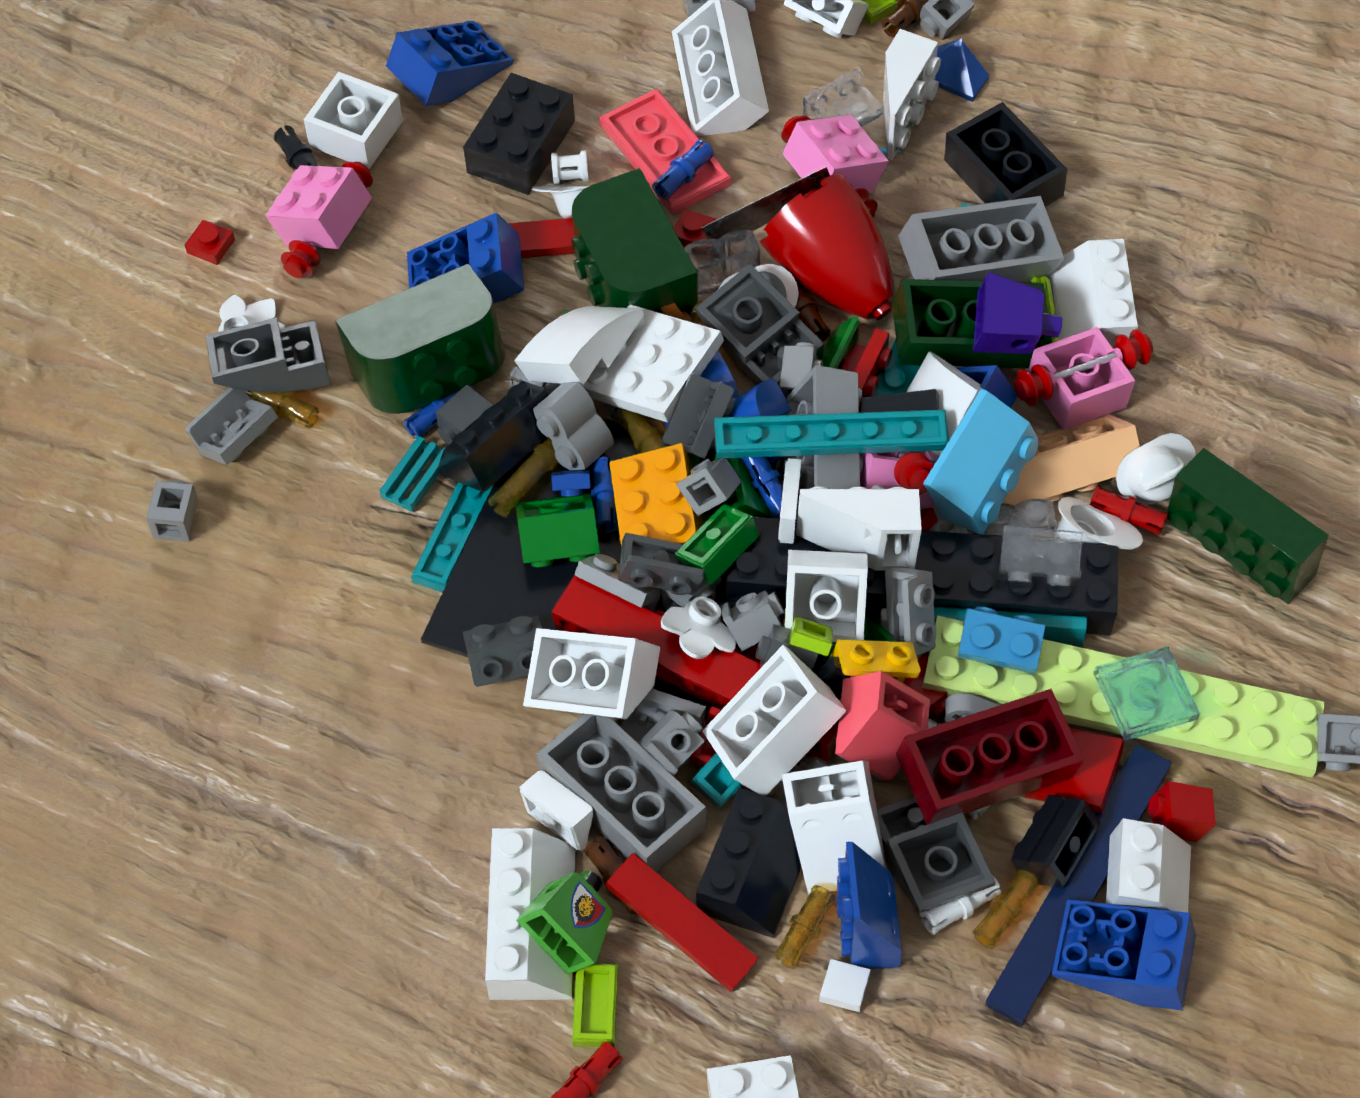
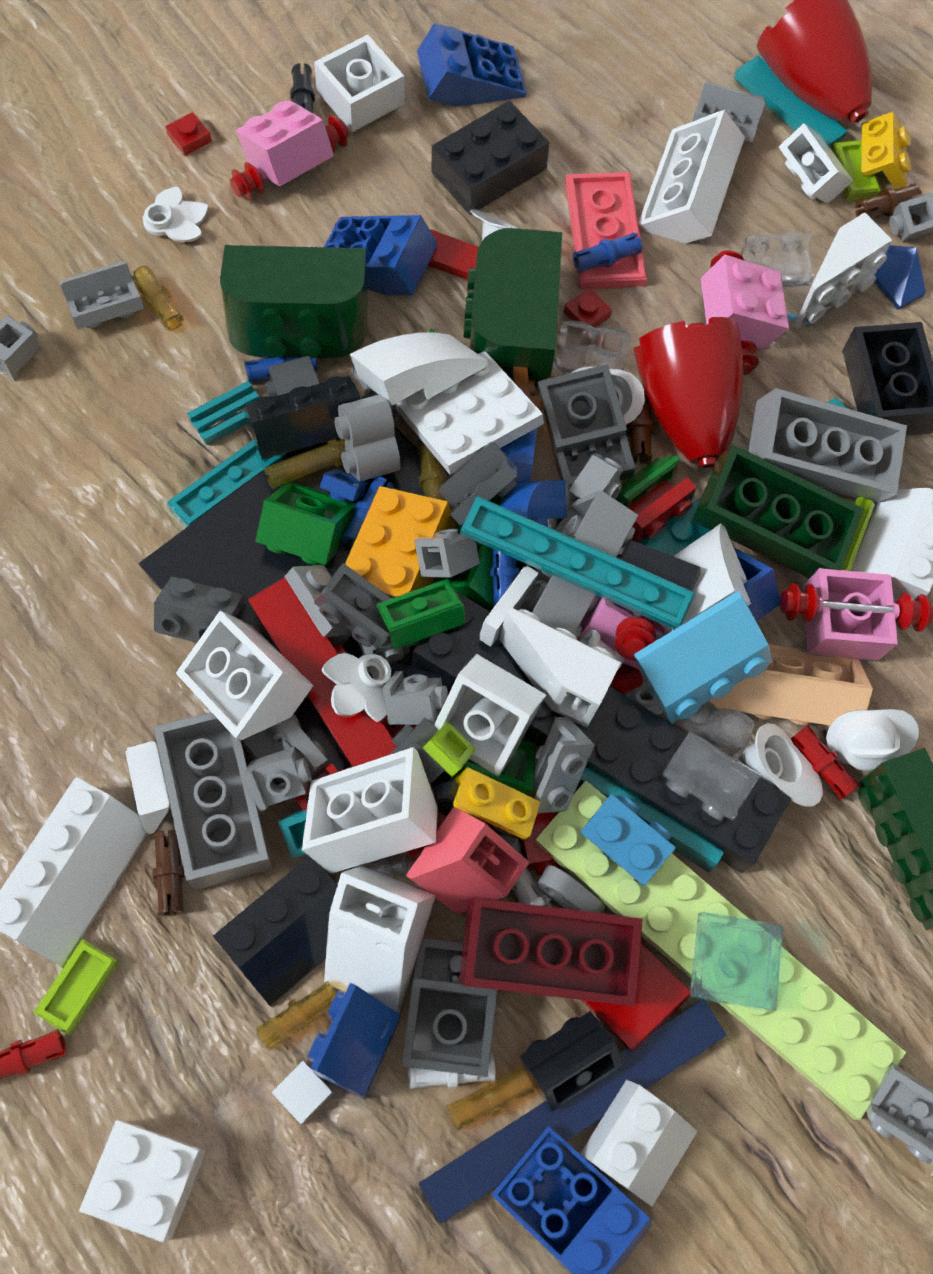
camera: 20 degrees right, 10 degrees up
(268, 357) = (164, 253): dark grey slope -> none
(569, 920) = (92, 898): bright green torso -> none
(579, 172) = (507, 199): white bush -> none
(681, 922) = (191, 953): red tile -> none
(763, 210) = (646, 320): black sticker -> none
(1011, 317) = (813, 529): dark purple torso -> none
(1183, 810) = (707, 1095): red brick -> none

